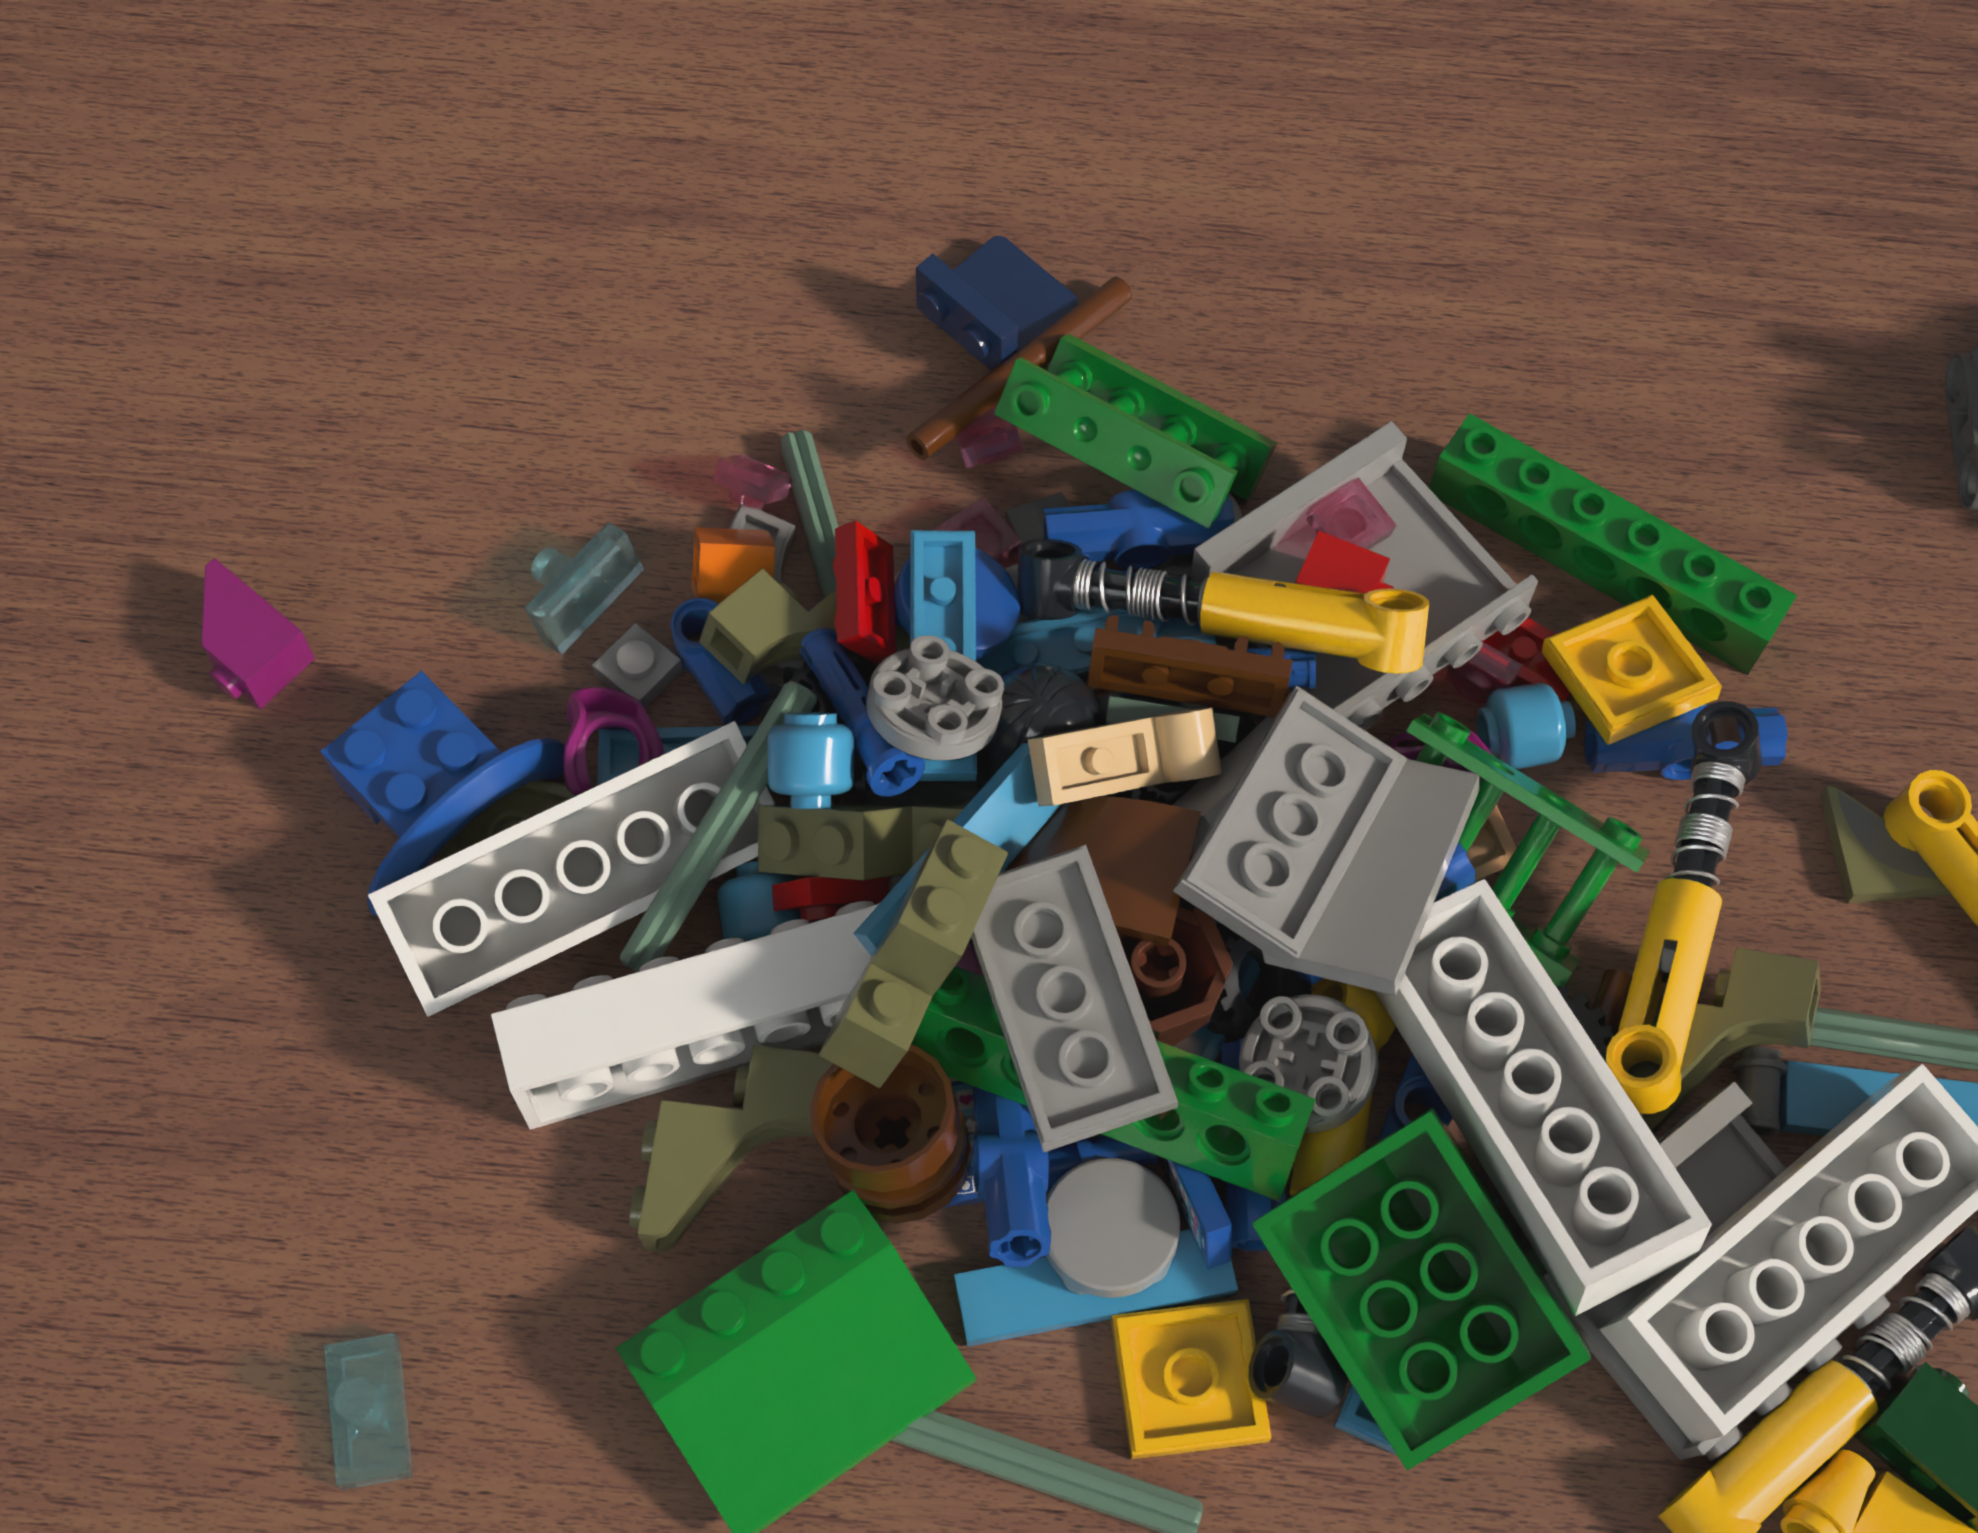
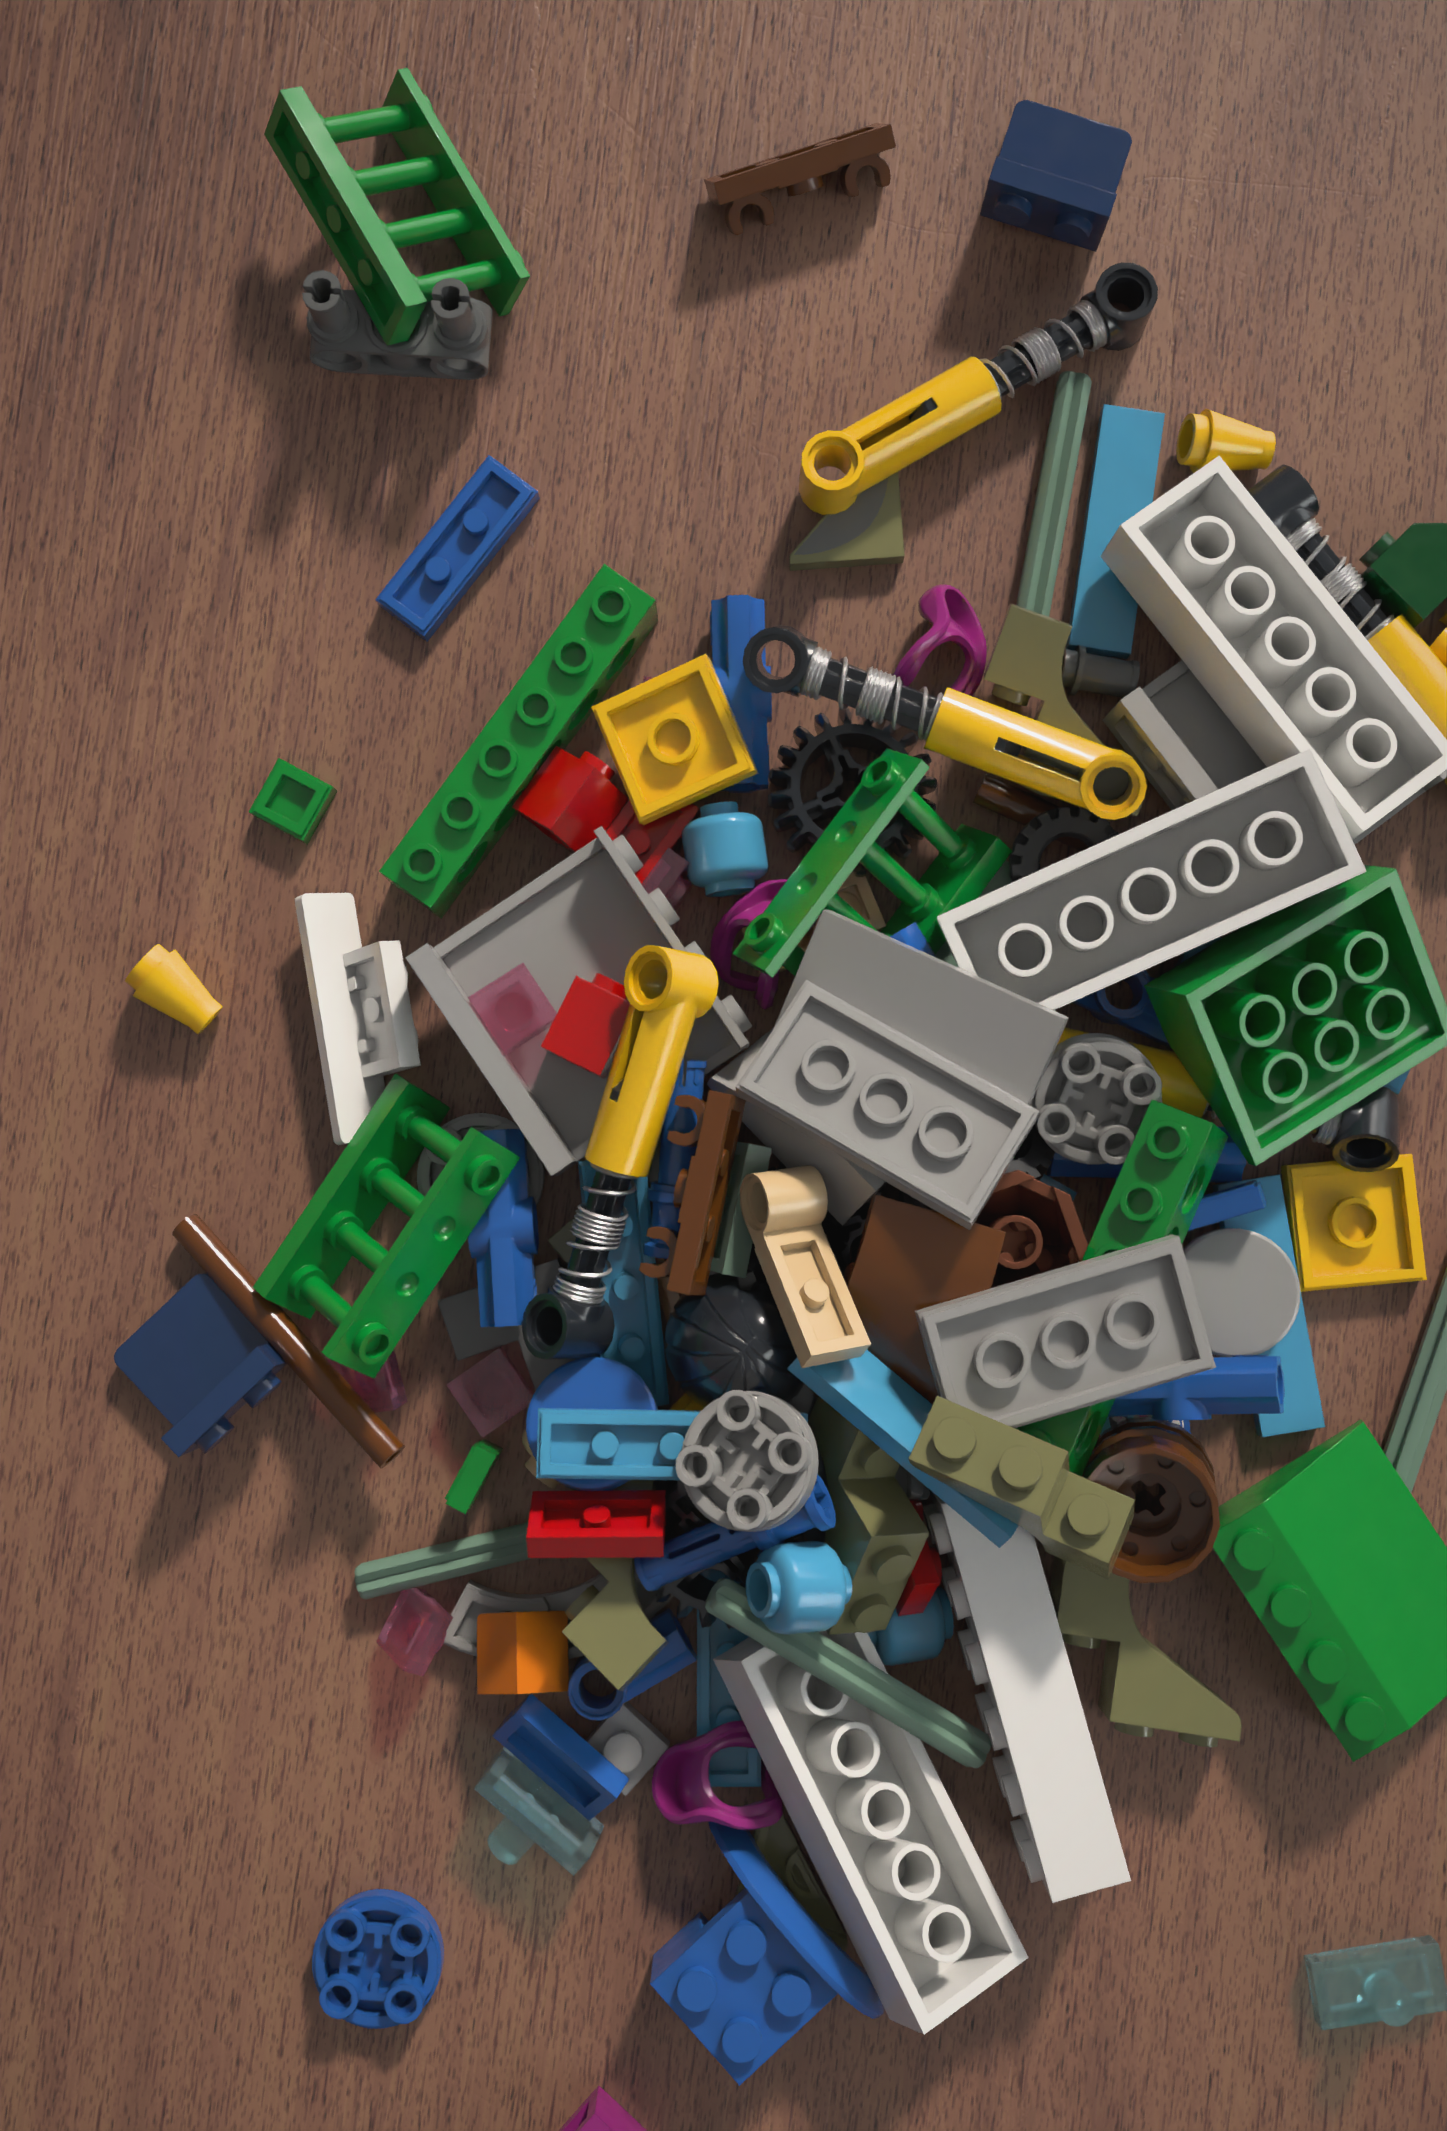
camera: 85 degrees left, 20 degrees up
(446, 465) = (377, 1959): none -> blue tile
(631, 605) = (560, 1757): none -> blue tile
(894, 519) = (473, 1475): none -> green tile
(1336, 409) = (356, 1006): none -> white bracket
(1341, 266) = (173, 988): none -> yellow cone
(1524, 363) = (293, 801): none -> green tile
(1565, 586) = (571, 798): none -> red brick
(1600, 796) = (826, 802): none -> black gear
(1791, 493) = (458, 548): none -> blue tile
(1796, 925) = (953, 622): none -> magenta piece

